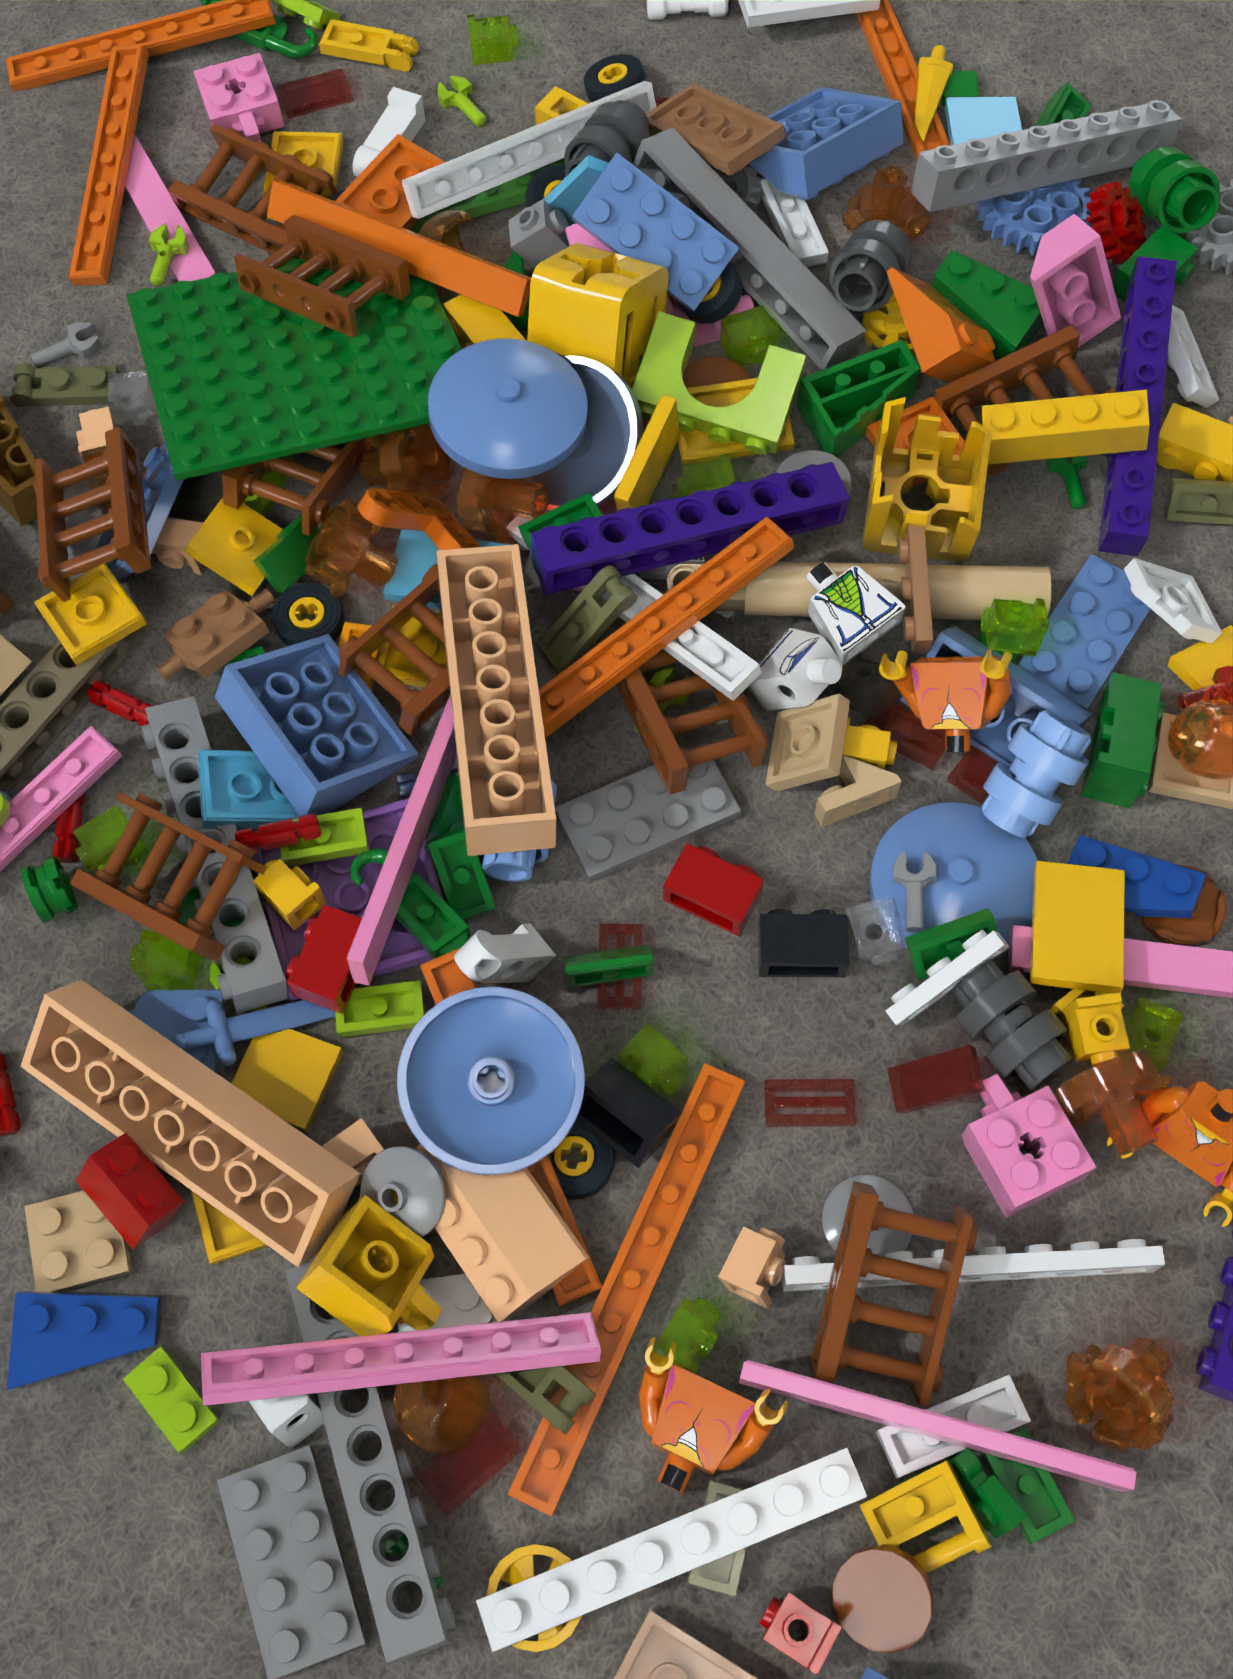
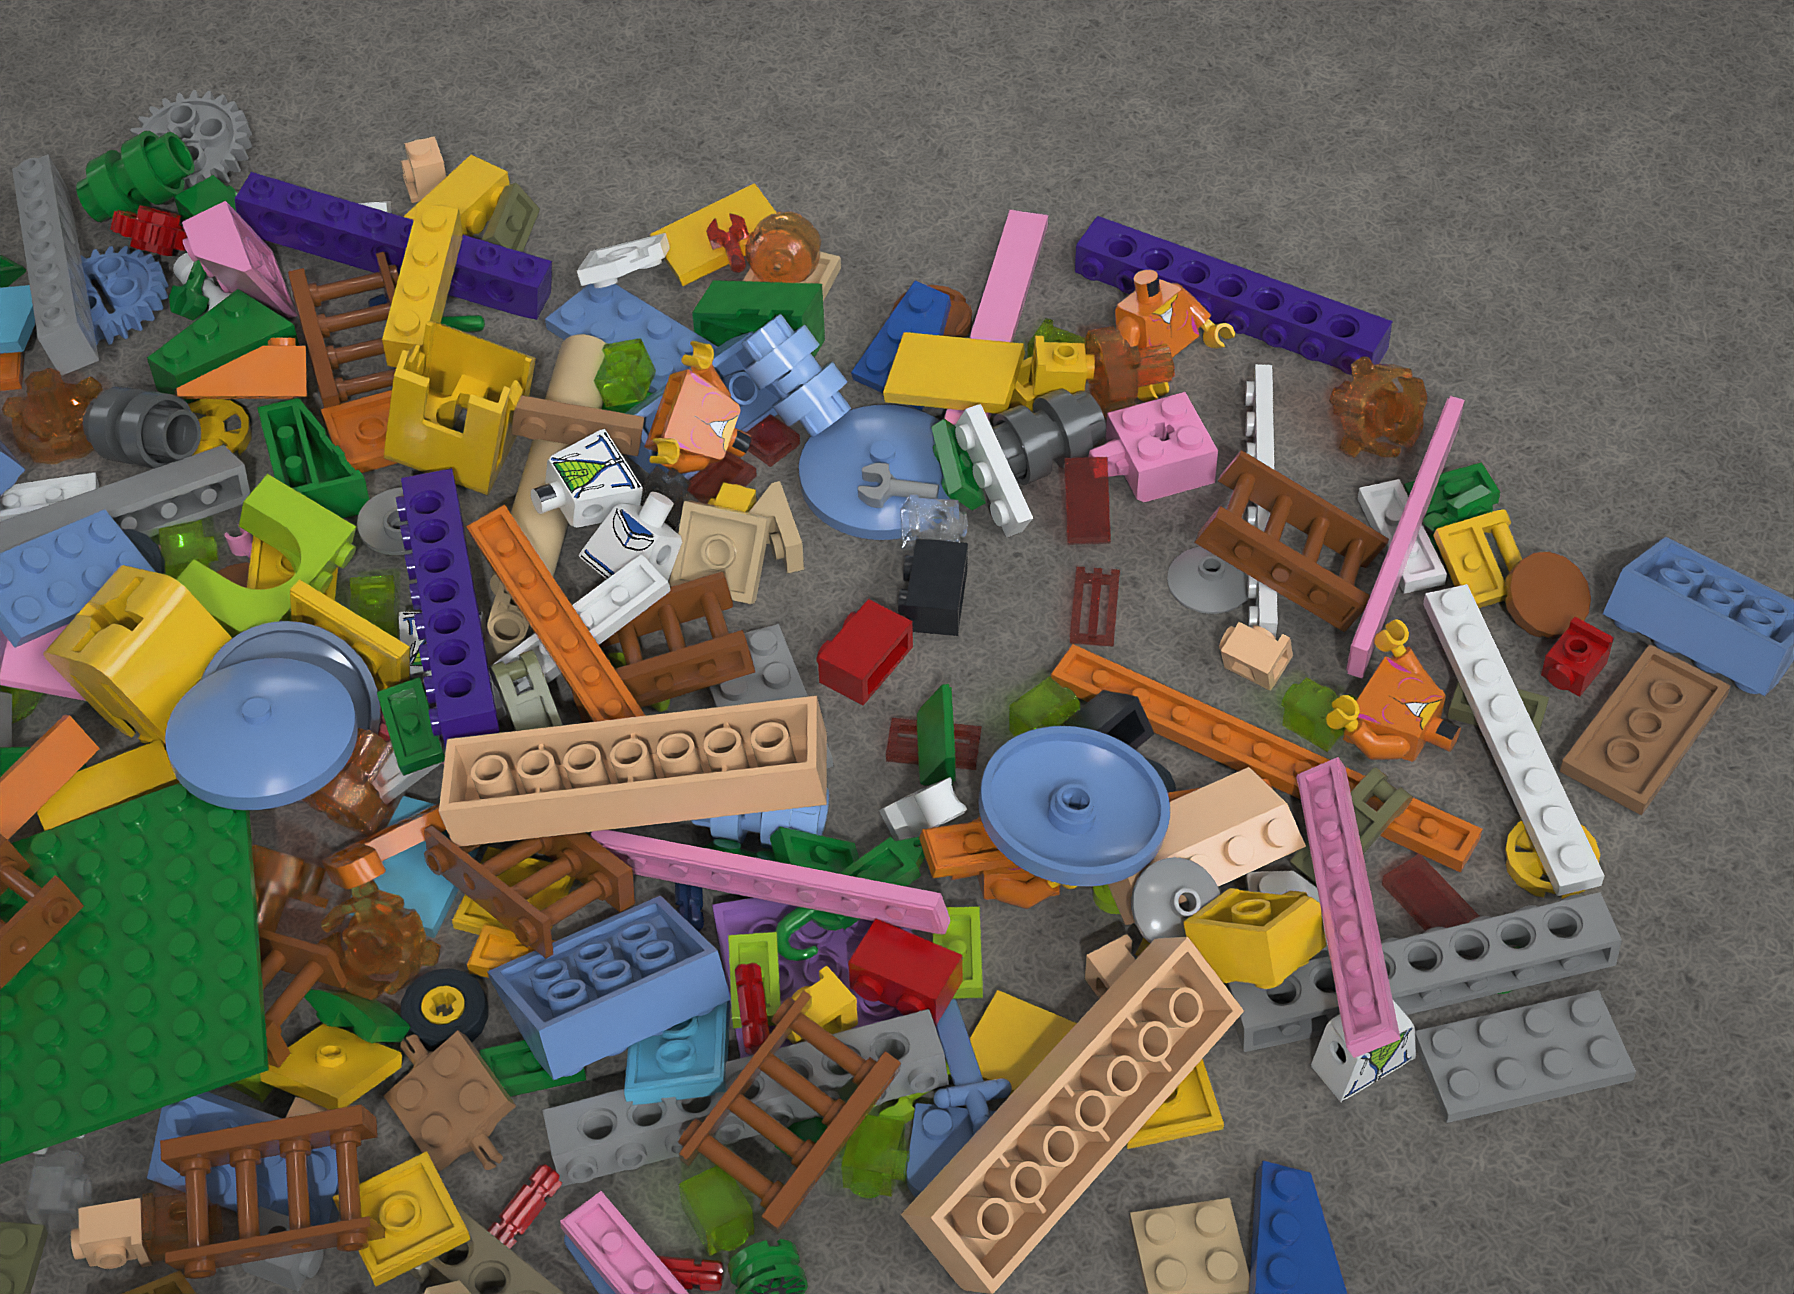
camera: 85 degrees left, 15 degrees down
(129, 1190) = (1148, 1177): red piece -> none
(171, 1400) = (1365, 1162): lime plate -> none
(441, 1412) = (1397, 899): clear orange piece -> none

